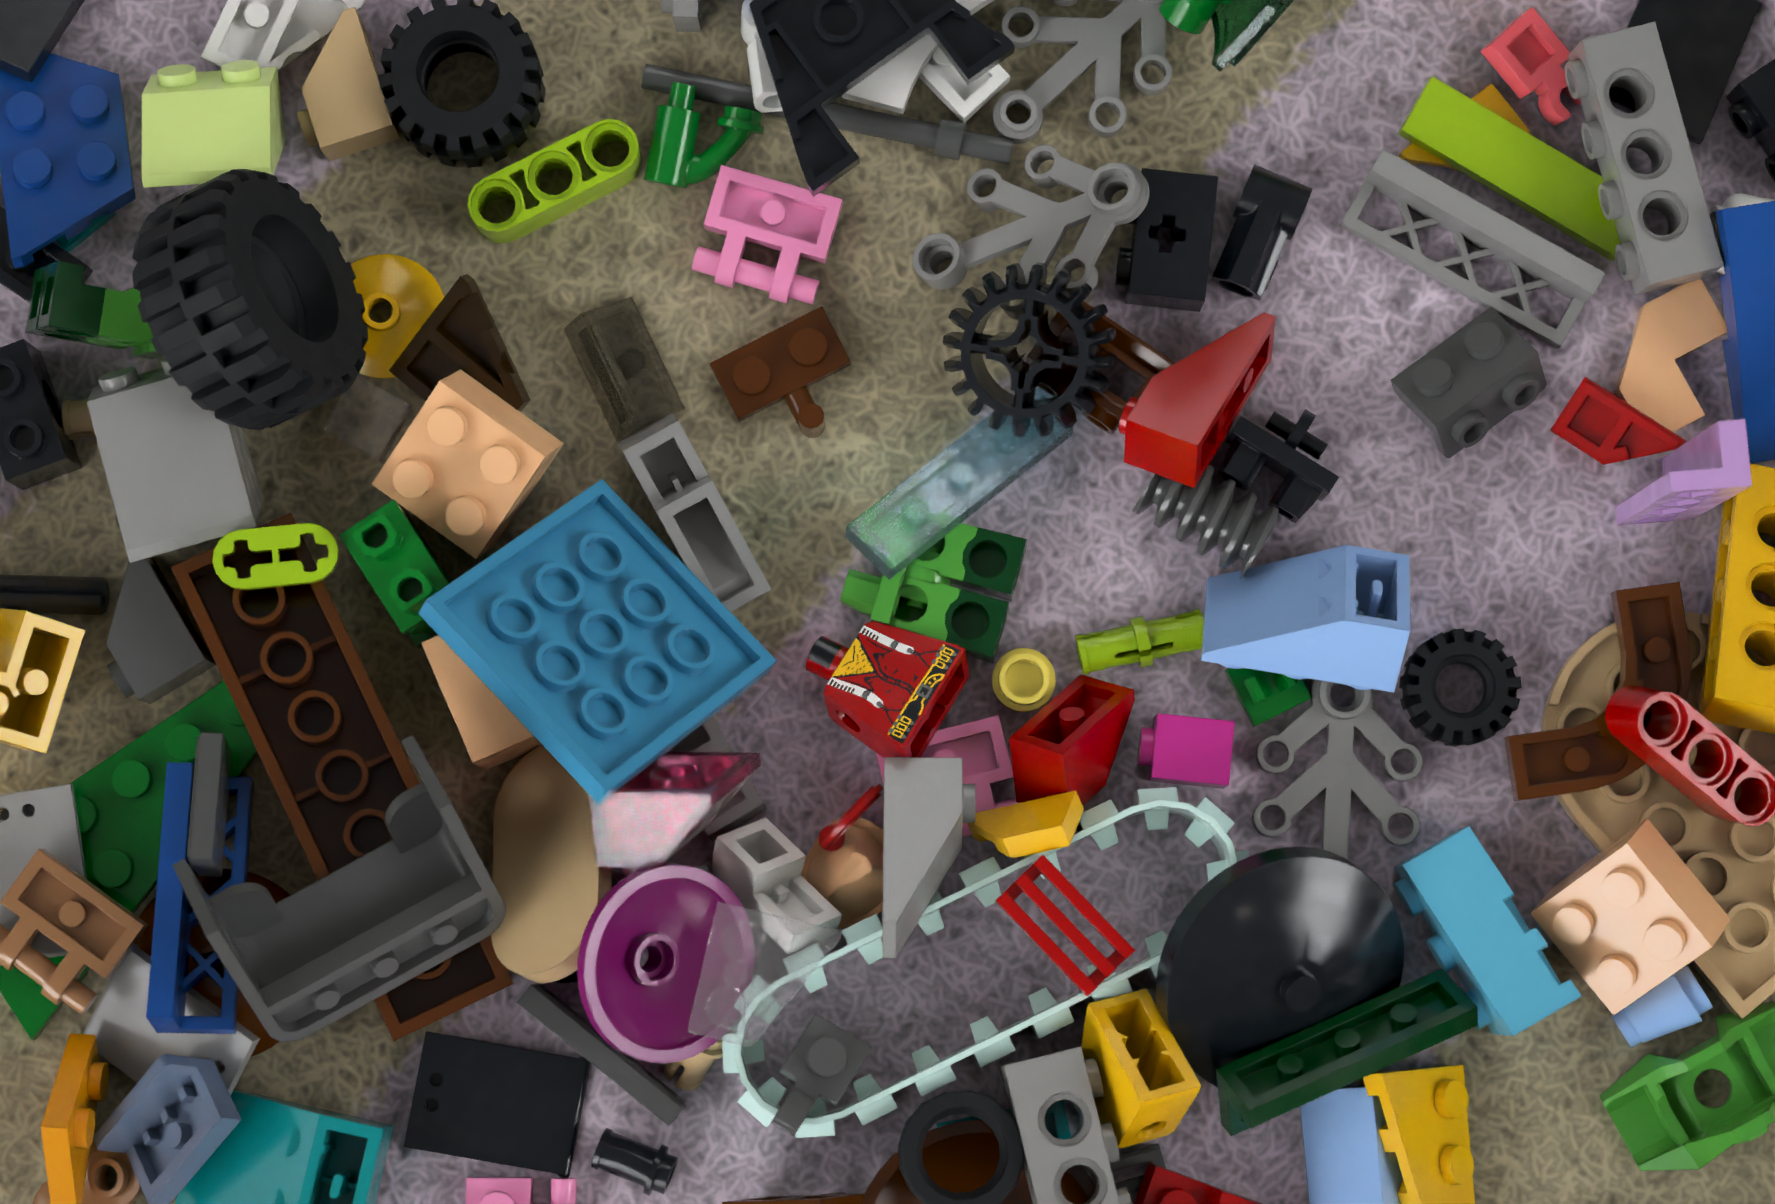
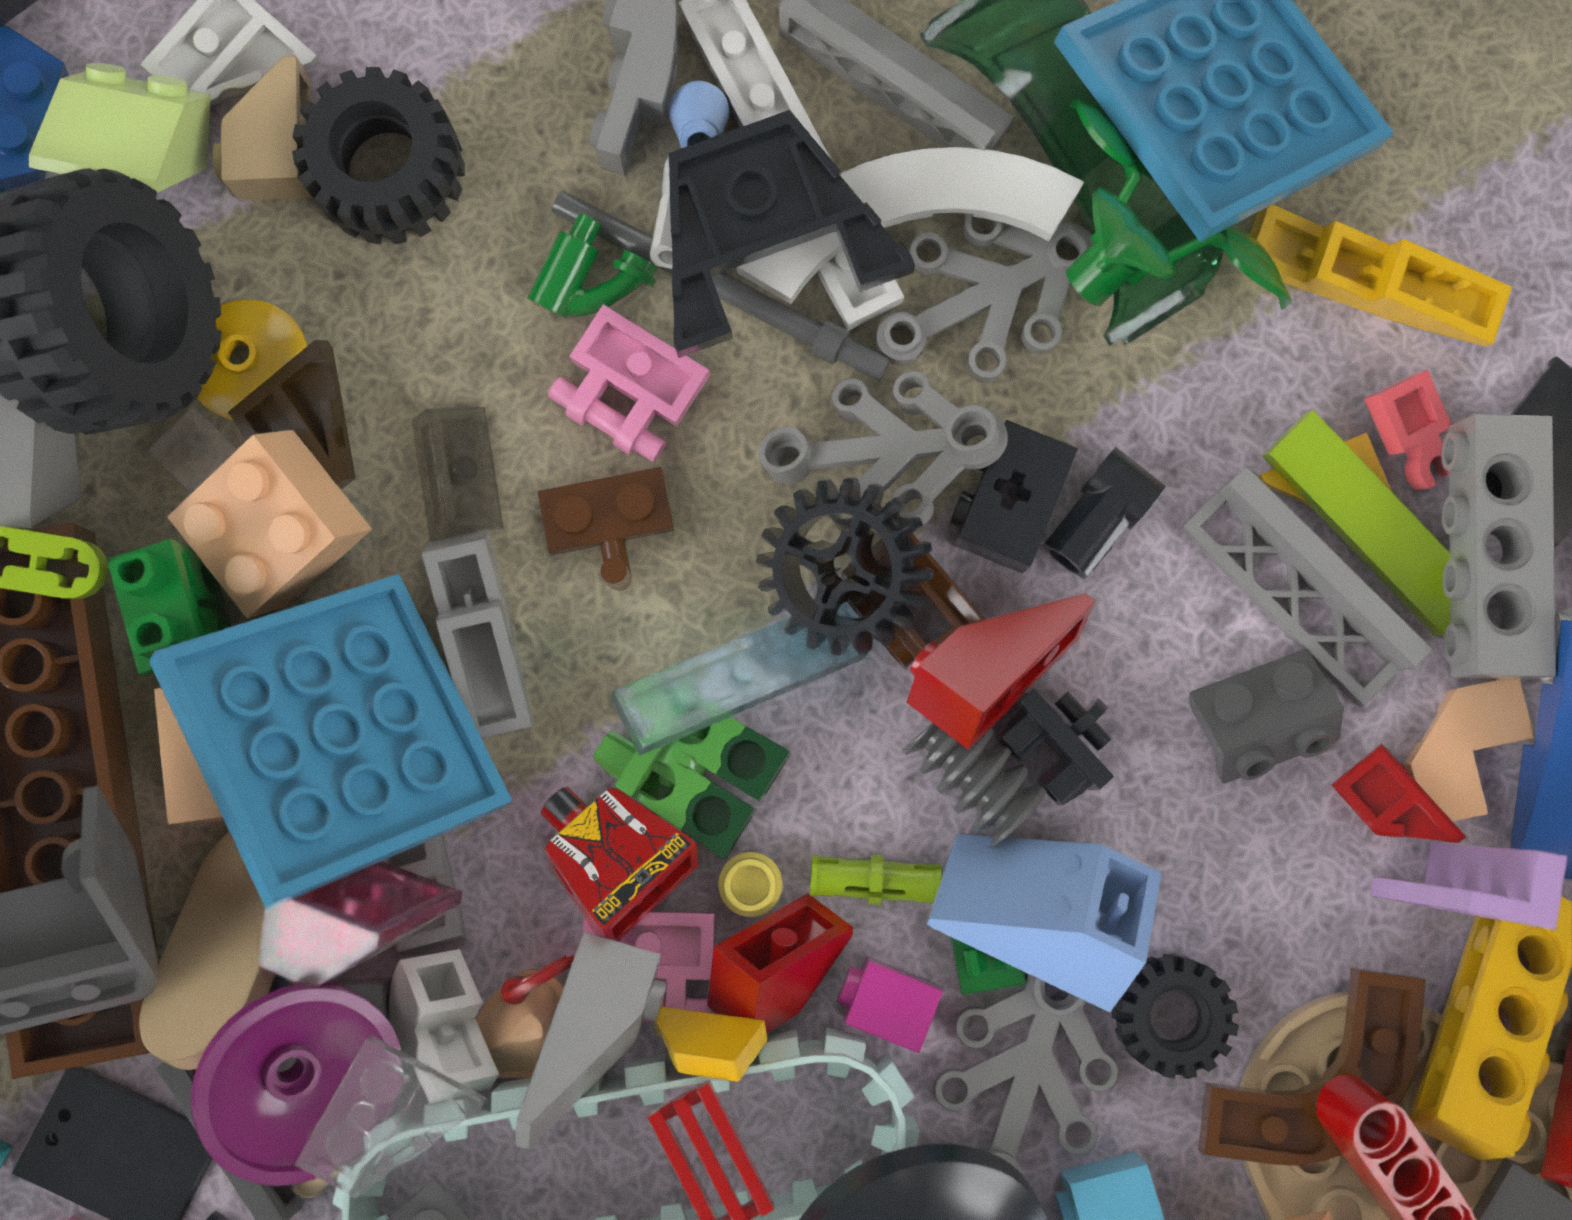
camera: 15 degrees right, 0 degrees up
(573, 154) = (414, 263): lime beam -> none

